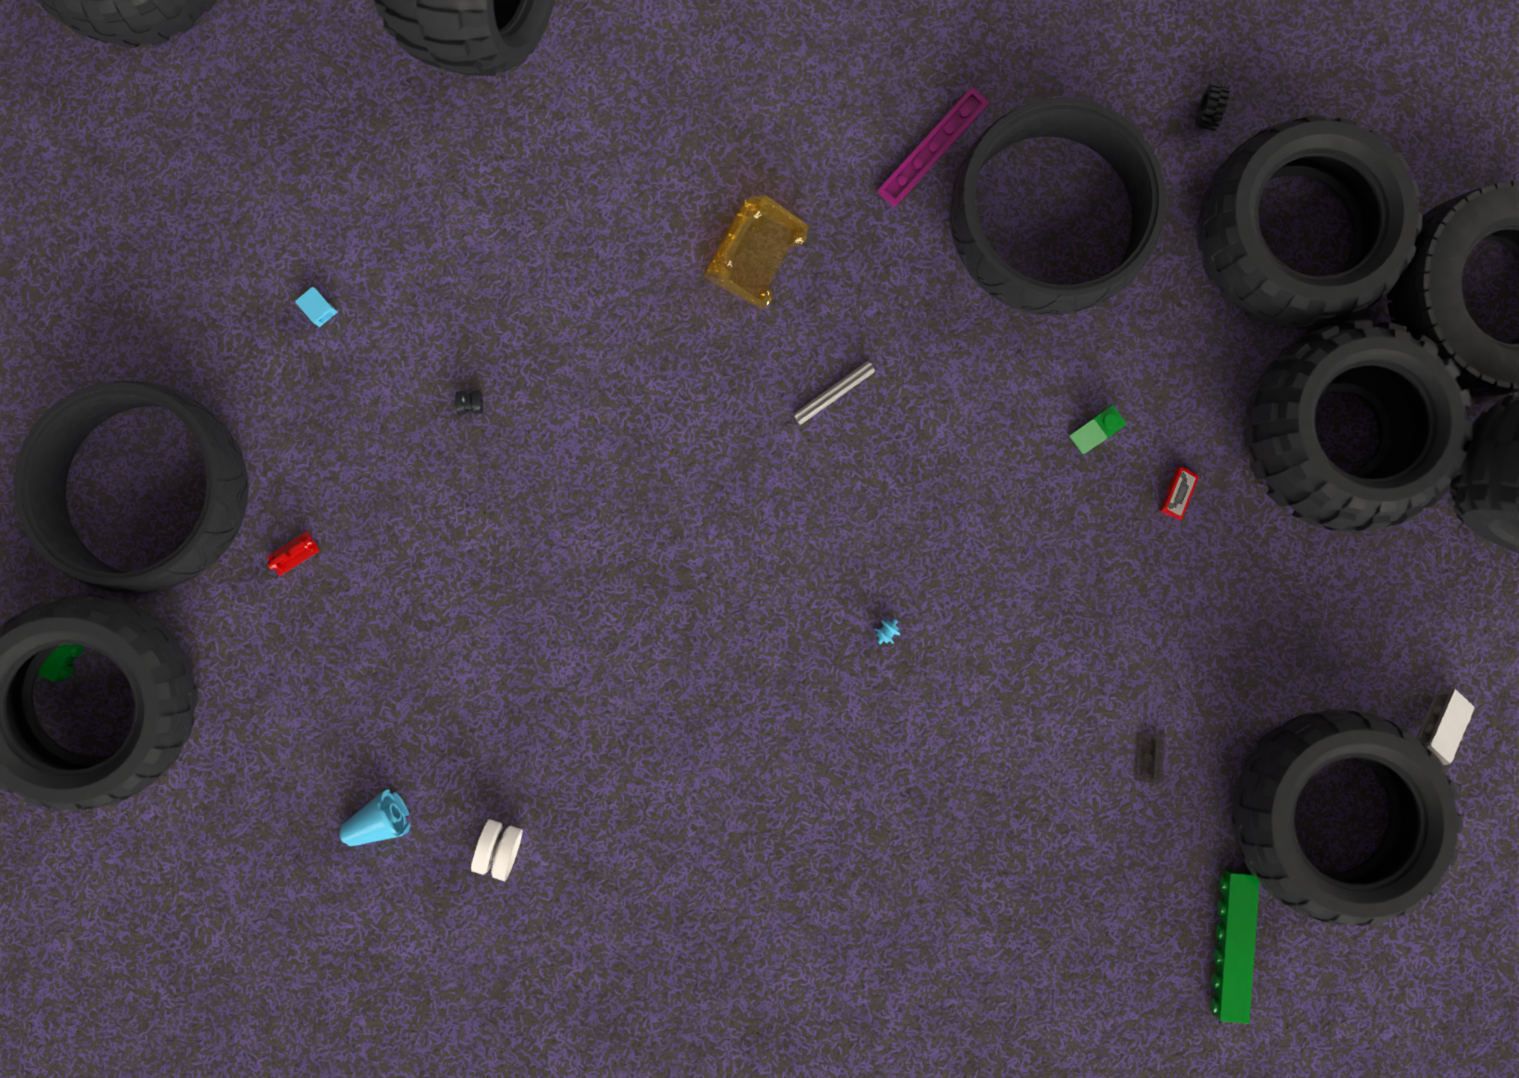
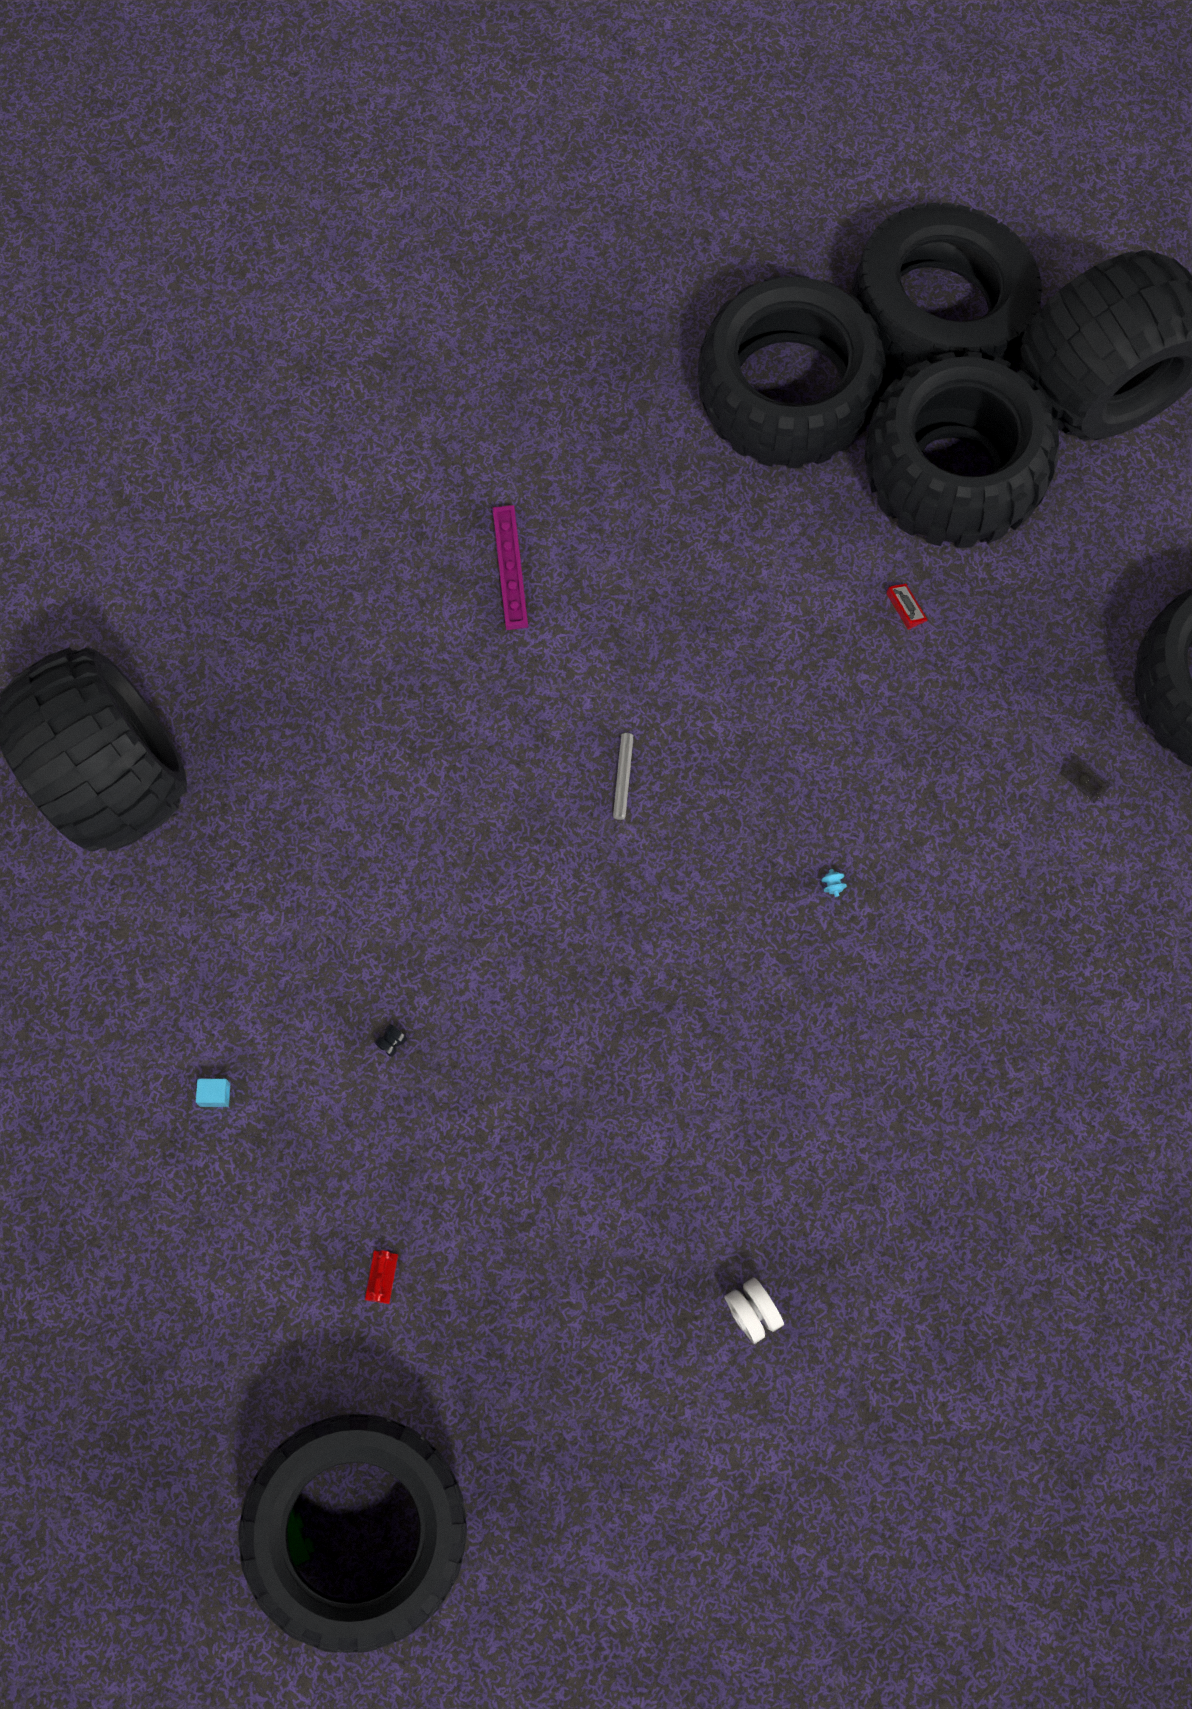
camera: 45 degrees left, 15 degrees down
(44, 470) = (131, 1320): black tyre -> none
(376, 821) = (648, 1392): medium azure cone -> none
(755, 249) = (468, 742): clear yellow windscreen -> none
(1097, 429) = (812, 620): green slope -> none
(1111, 138) = (636, 444): black tyre -> none
(1212, 107) = (653, 369): black tyre -> none

